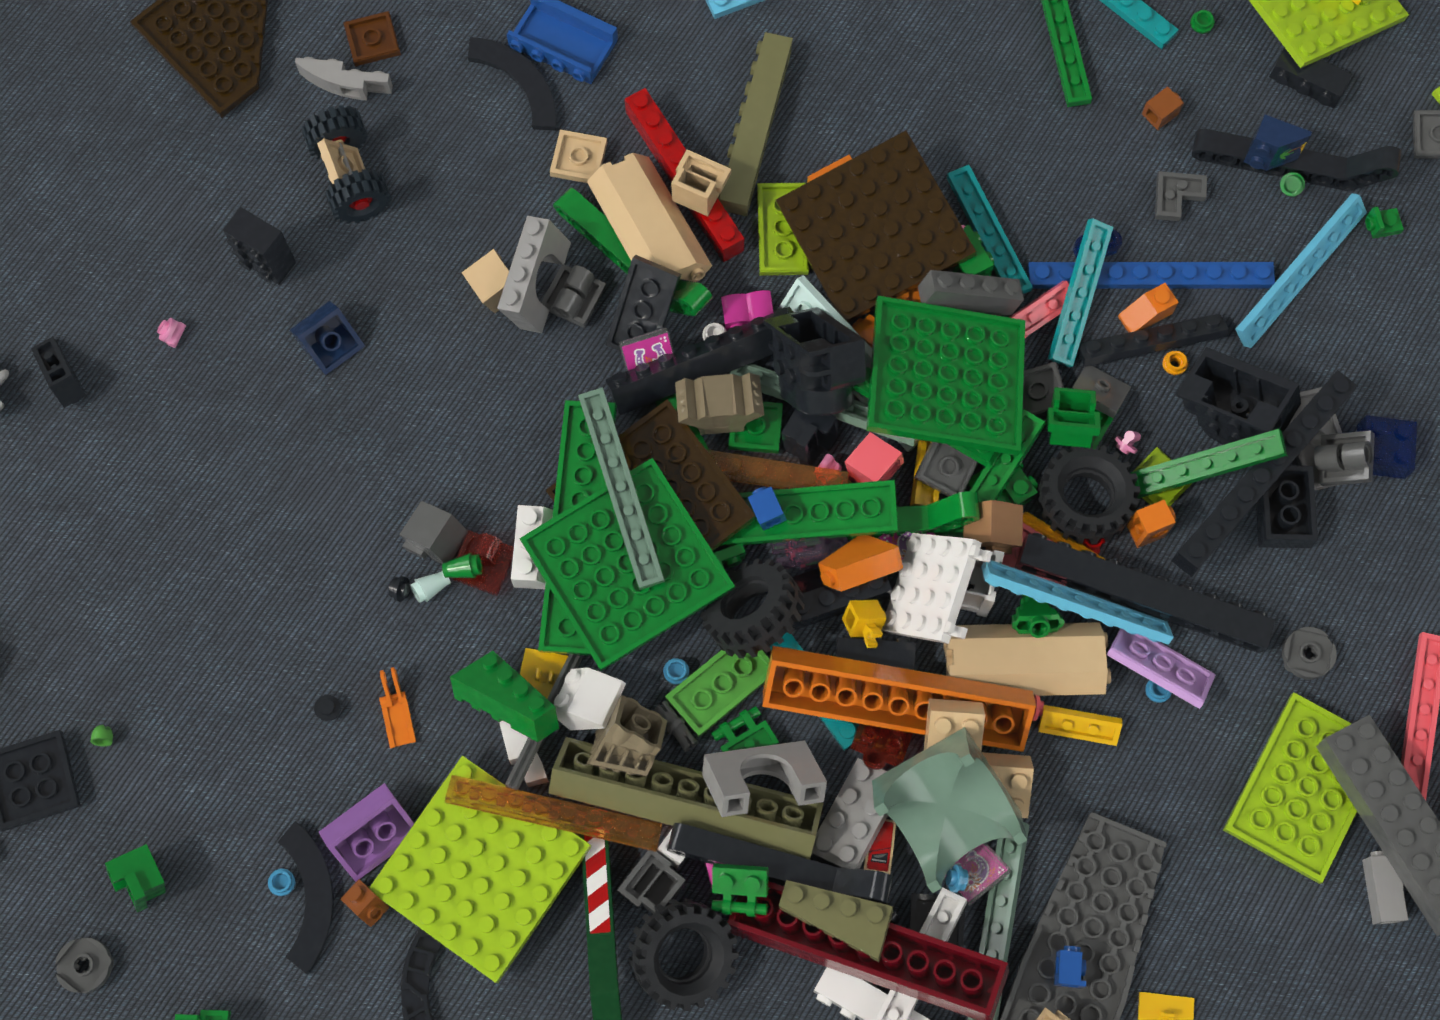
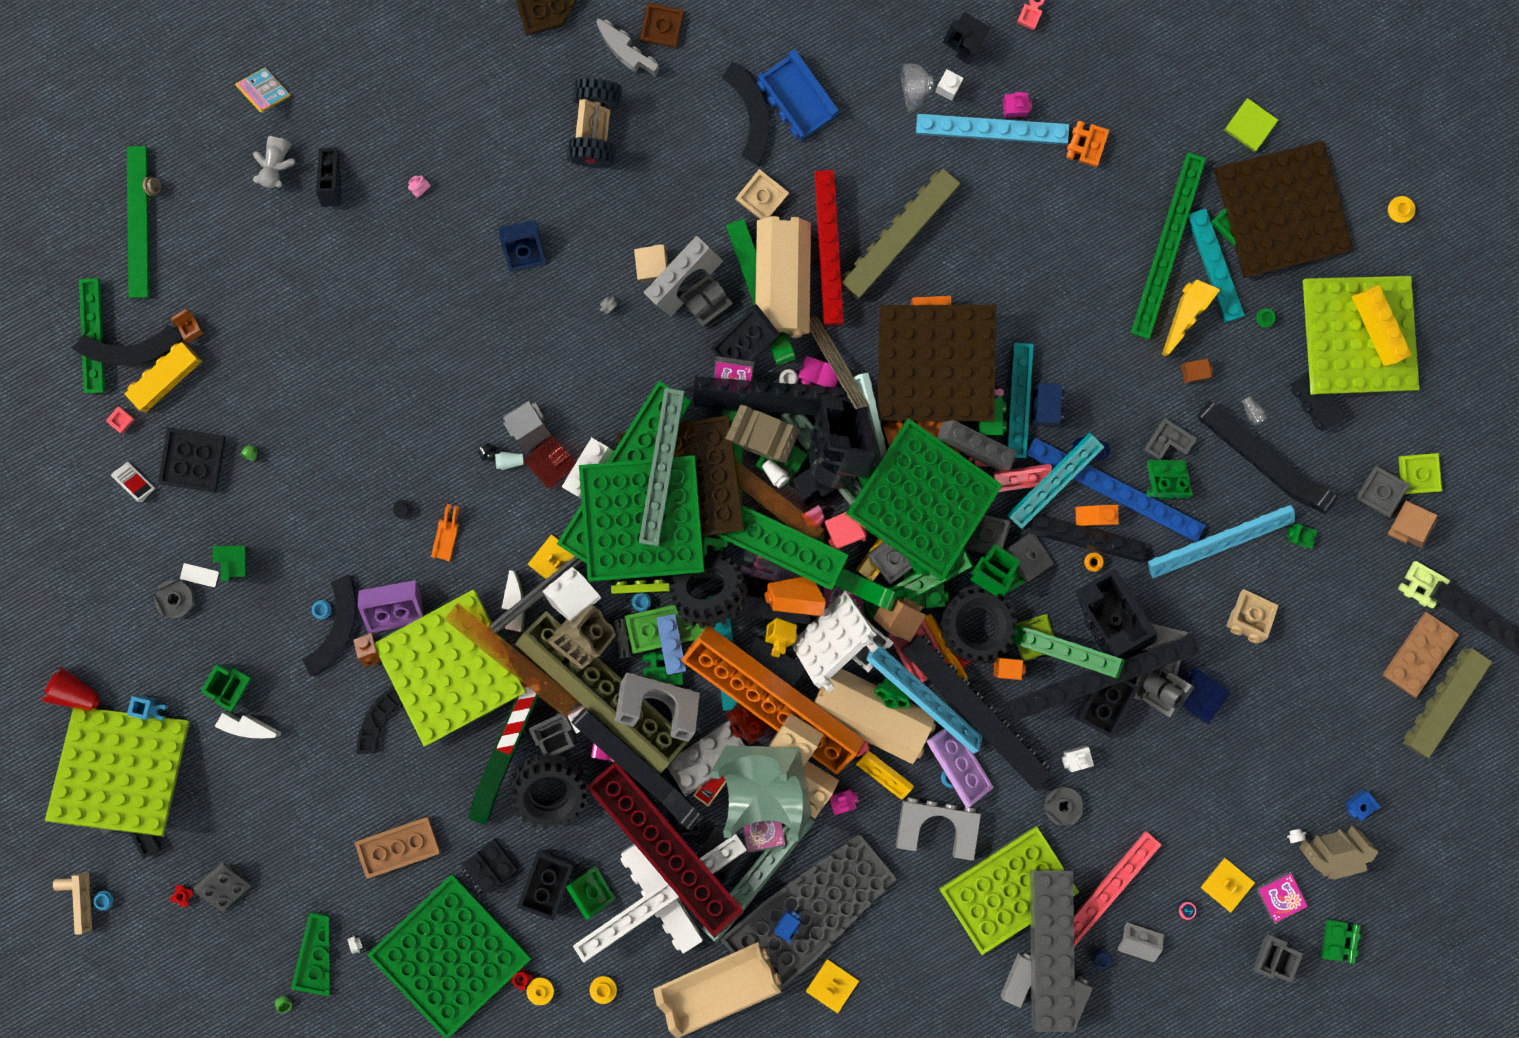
camera: 30 degrees right, 15 degrees up
(103, 920) = (199, 575): none -> white sticker
(259, 246) = (503, 158): black brick -> none
(461, 353) = (608, 304): none -> light grey plate
(463, 567) = (535, 461): green cone -> none
(502, 692) = (516, 559): green wedge -> none
(646, 664) = (640, 586): none -> lime plate
(698, 182) = (831, 267): tan plate -> none
(739, 699) = (671, 644): none -> medium blue plate
(740, 880) = (606, 767): green plate -> none
(758, 440) = (776, 474): none -> white cone
(764, 286) = (837, 363): none -> dark tan sticker
(766, 507) = (753, 528): blue brick -> none
(777, 244) = (865, 335): lime tile -> none
(845, 917) = (659, 825): olive wing -> none
(957, 878) = (747, 834): dark azure plate -> none
(1022, 217) = (1047, 405): none -> dark blue brick
(1049, 782) = (843, 801): none -> dark pink brick
(1115, 43) = (1193, 301): none -> yellow wedge
(1126, 444) = (1026, 602): bright pink plate -> none
(1204, 233) = (1168, 479): none -> green plate
(1205, 731) = (915, 813): none -> light grey arch
(1247, 118) = (1253, 410): none -> clear cone
(1276, 144) = (1252, 445): dark blue slope -> none
(1292, 184) = (1254, 475): green plate -> none
(1292, 589) = (1077, 759): none -> white brick
(1387, 332) = (1252, 617): none -> tan plate

